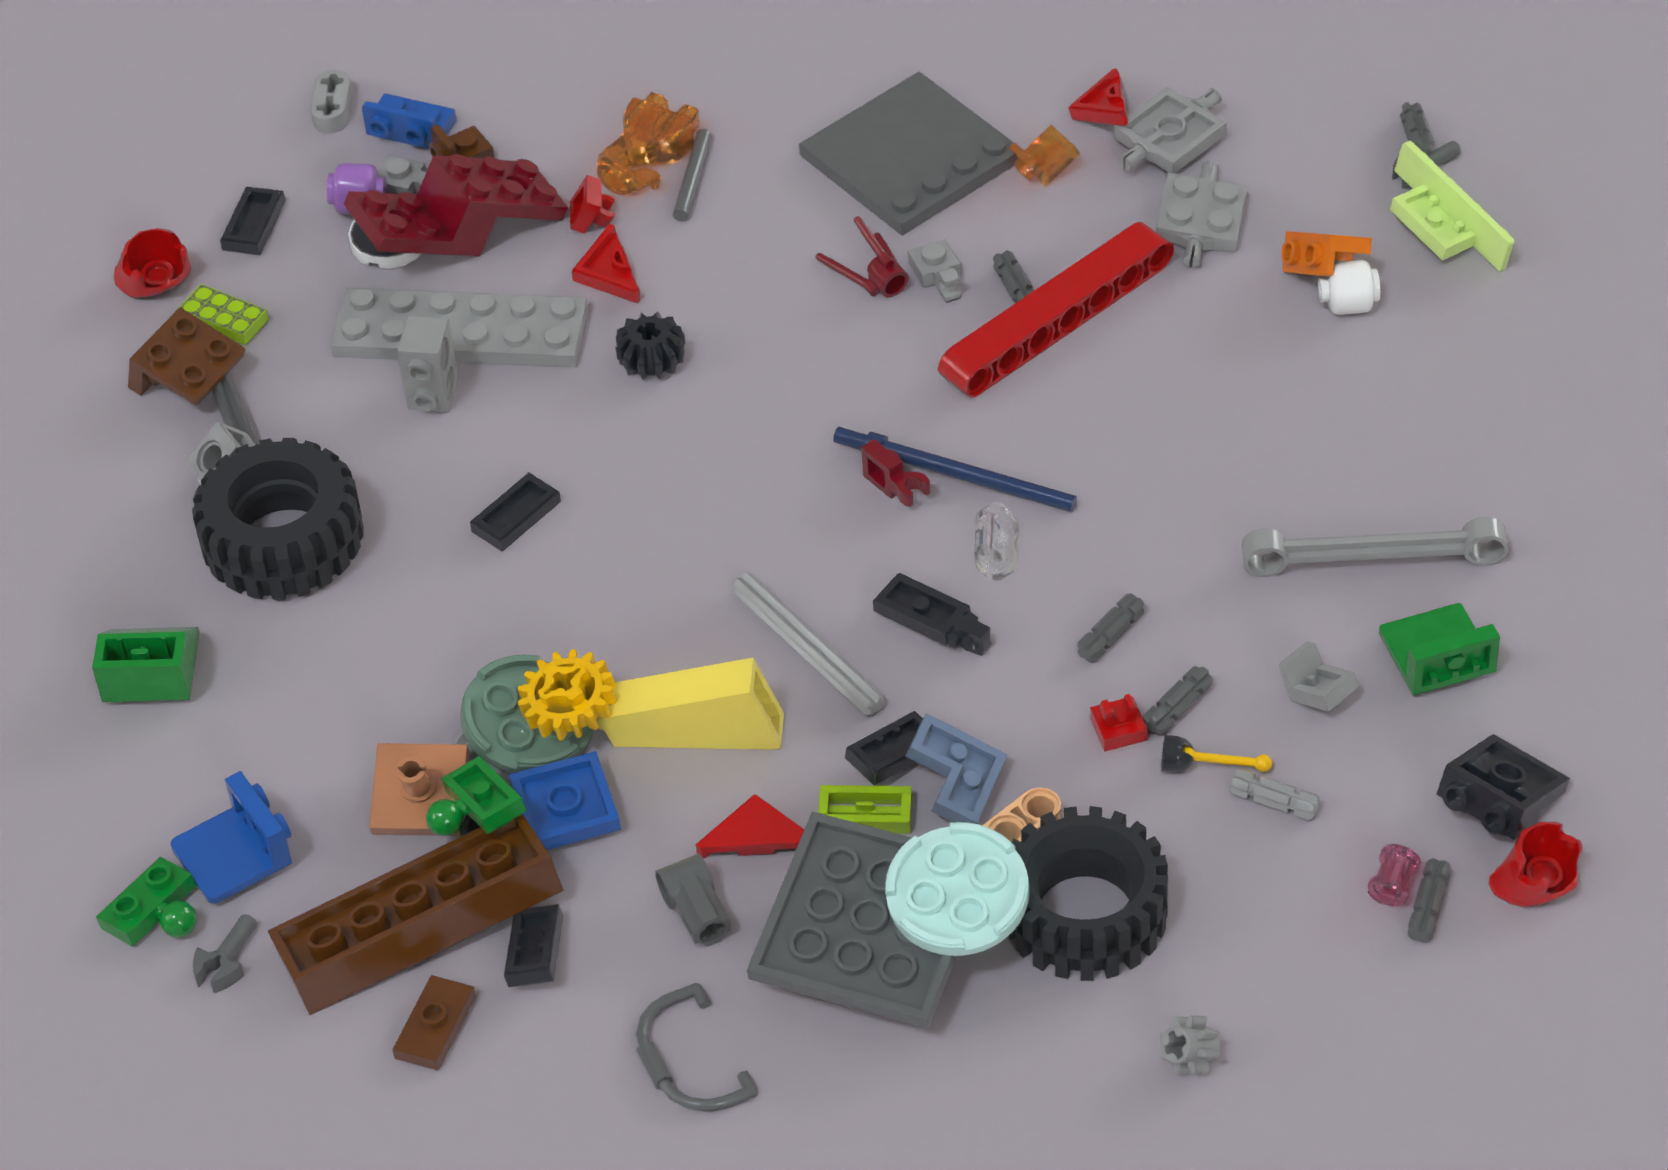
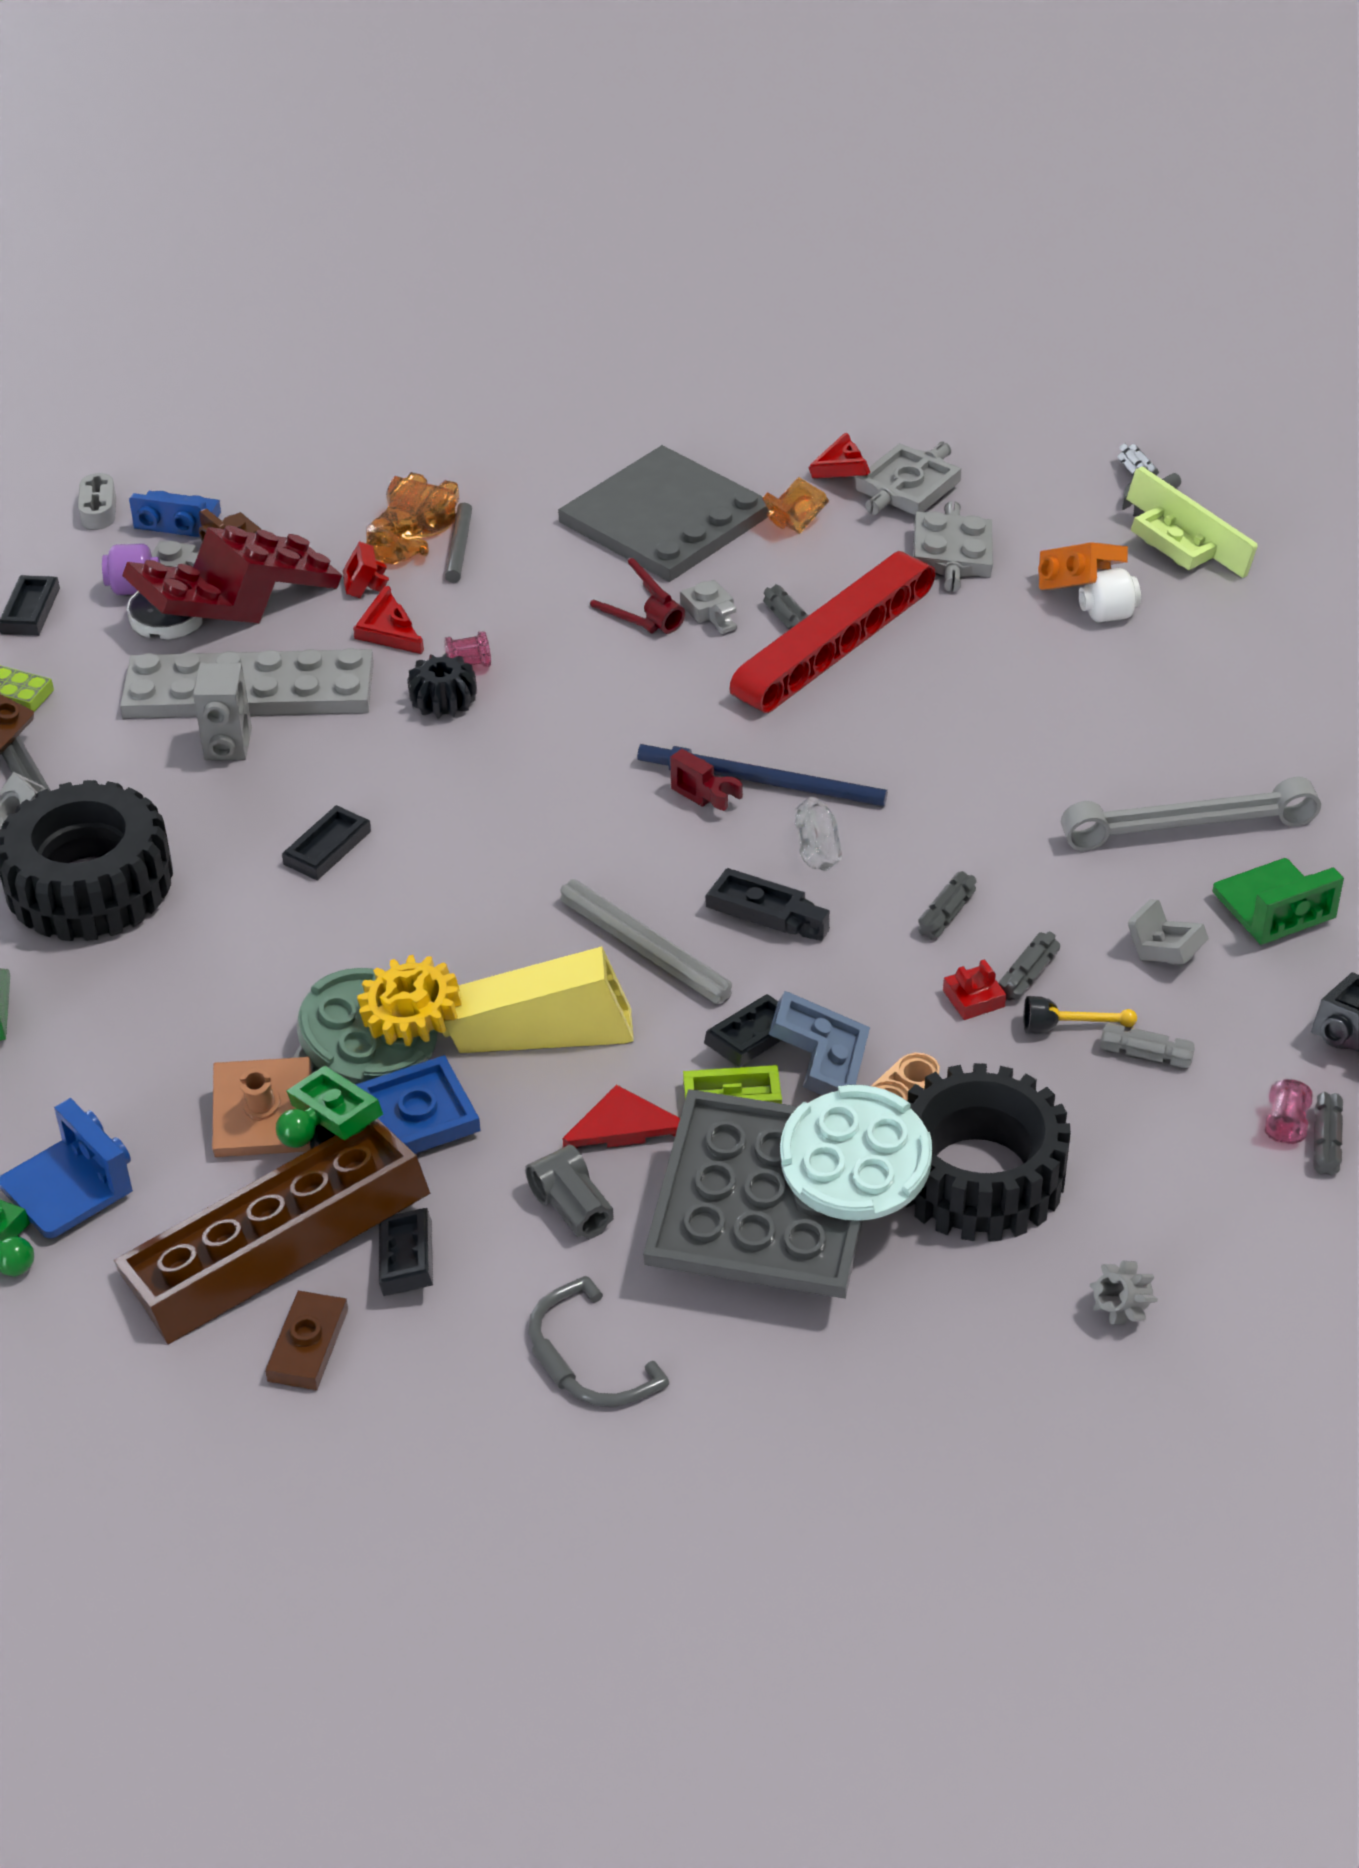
camera: 10 degrees left, 5 degrees down
(230, 971) = (75, 1305): dark grey bar -> none
(682, 306) = (472, 649): none -> clear pink bush

